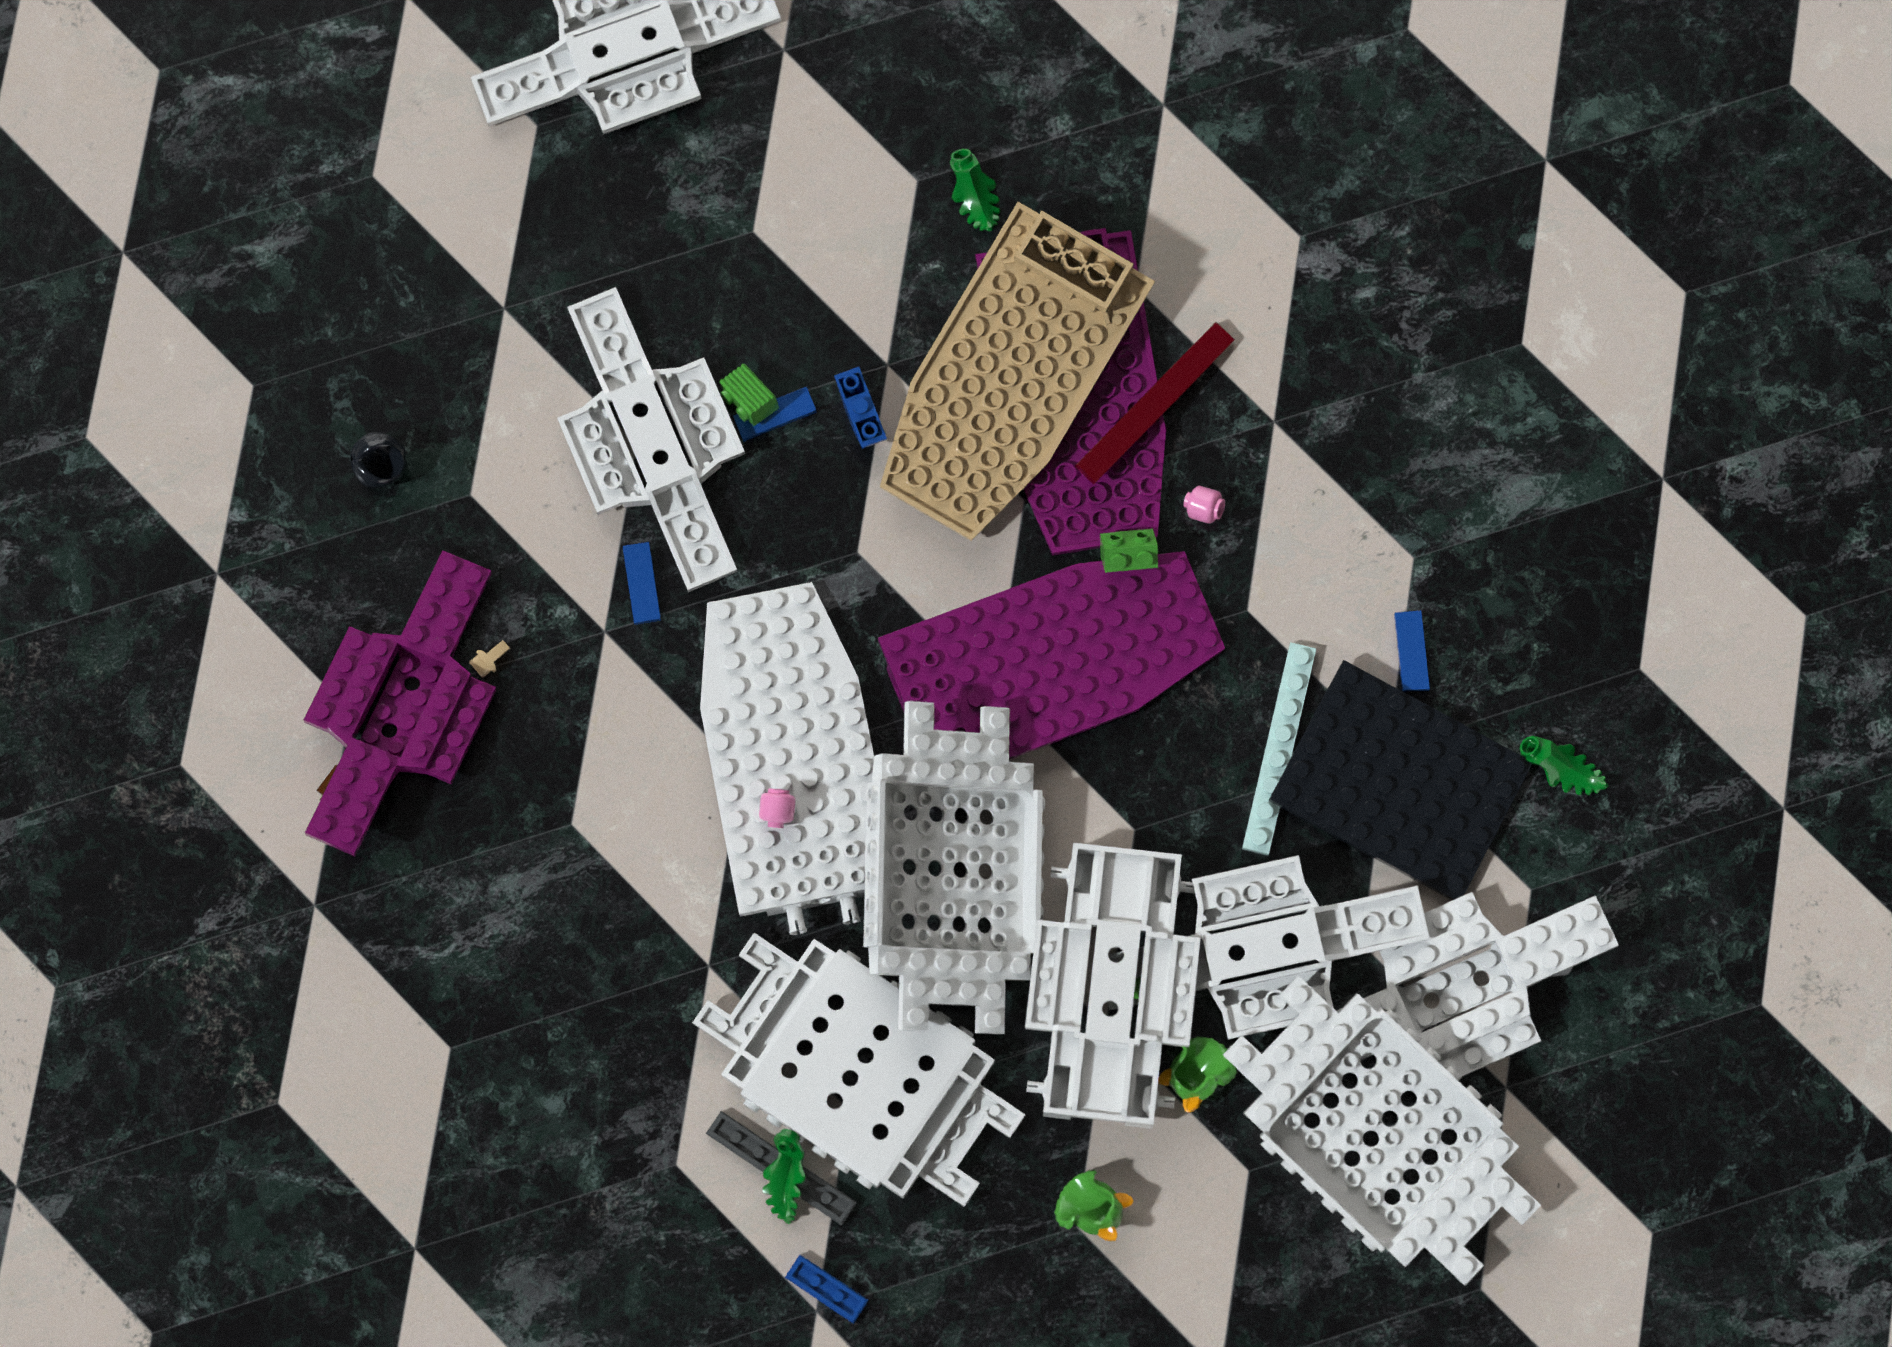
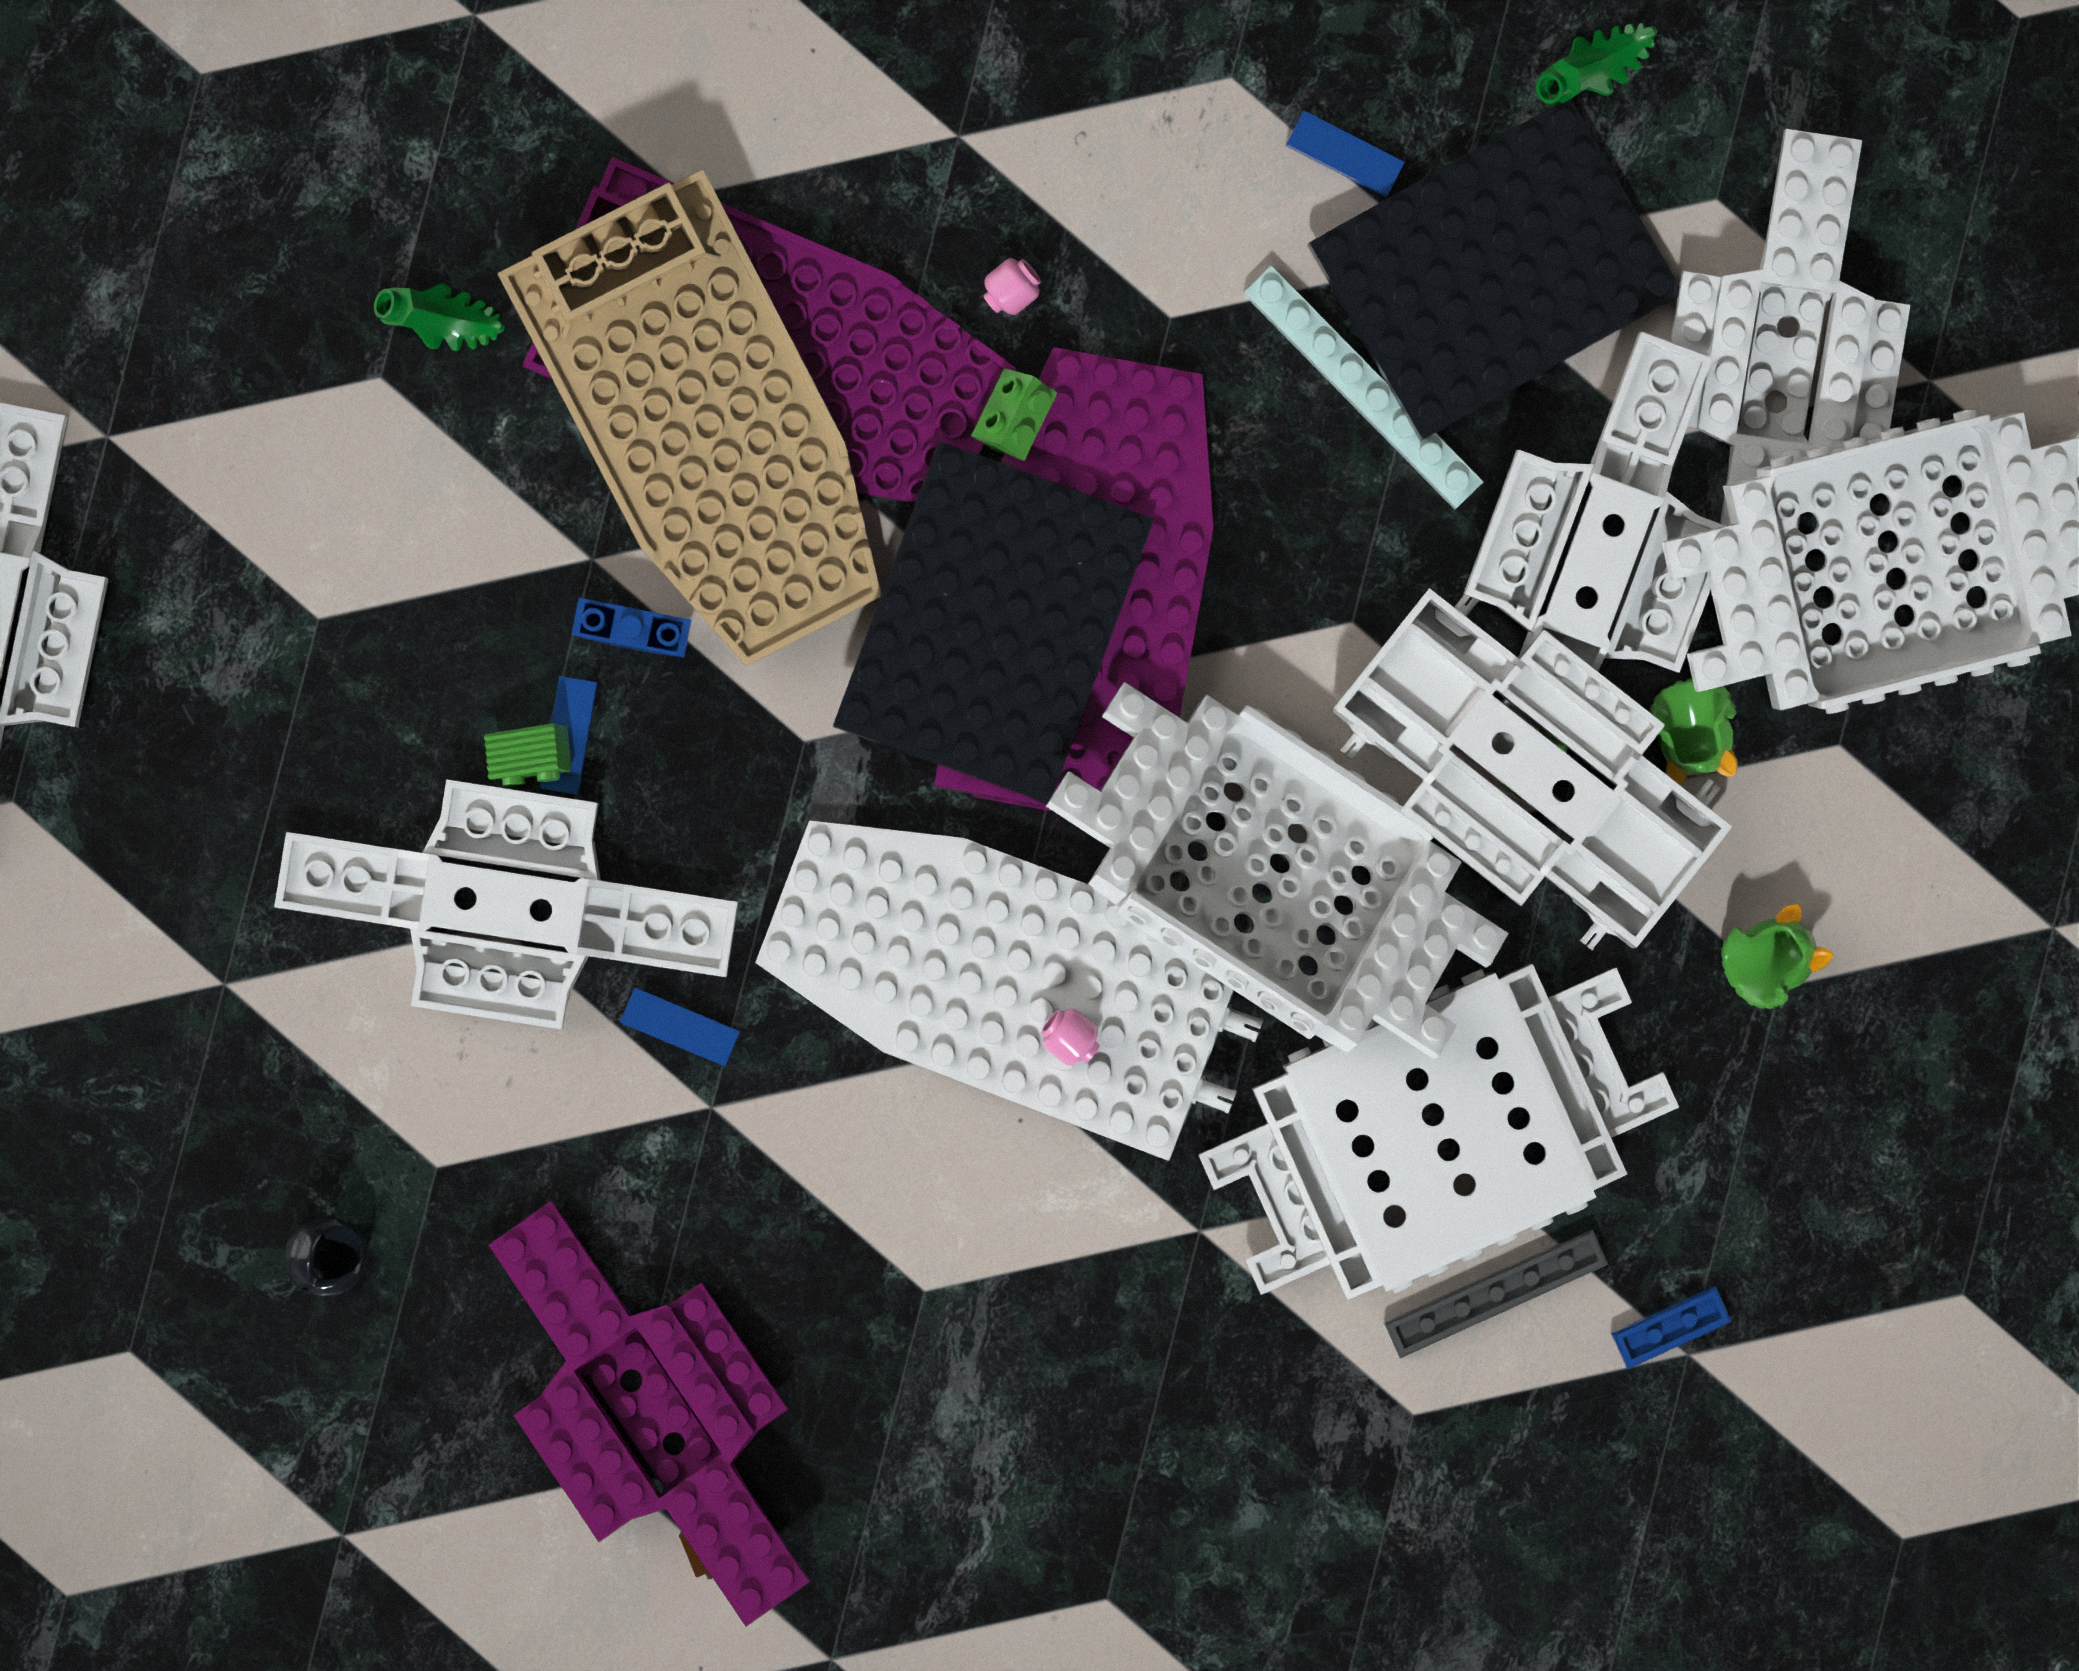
camera: 60 degrees left, 10 degrees up
(484, 663) = (661, 1278): tan piece -> none
(785, 1175) = (1512, 1296): green plant -> none
(997, 612) = (993, 623): none -> black plate
(1154, 403) = (849, 266): dark red tile -> none

